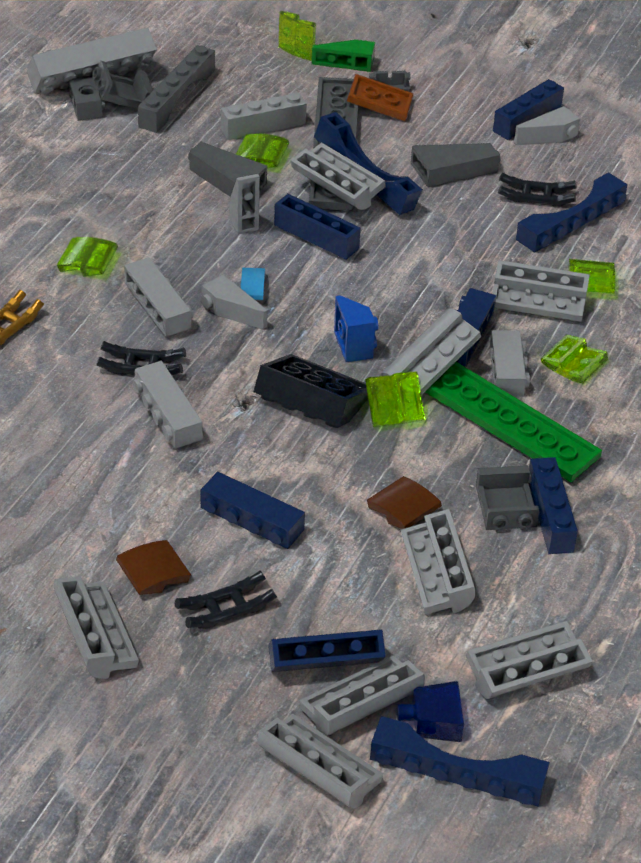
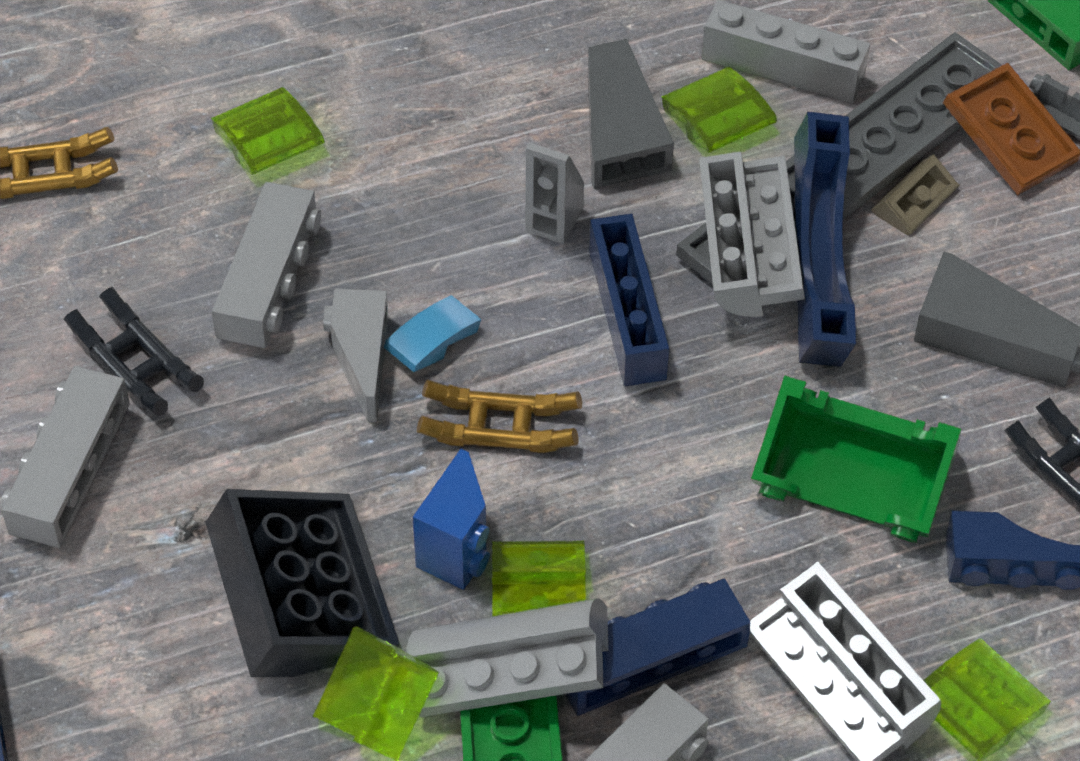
camera: 45 degrees right, 10 degrees up
(320, 287) = (481, 402): none -> pearl gold piece
(370, 139) = (916, 195): none -> dark tan slope
(397, 335) = (536, 574): none -> clear neon green slope
(465, 228) = (855, 460): none -> green windscreen

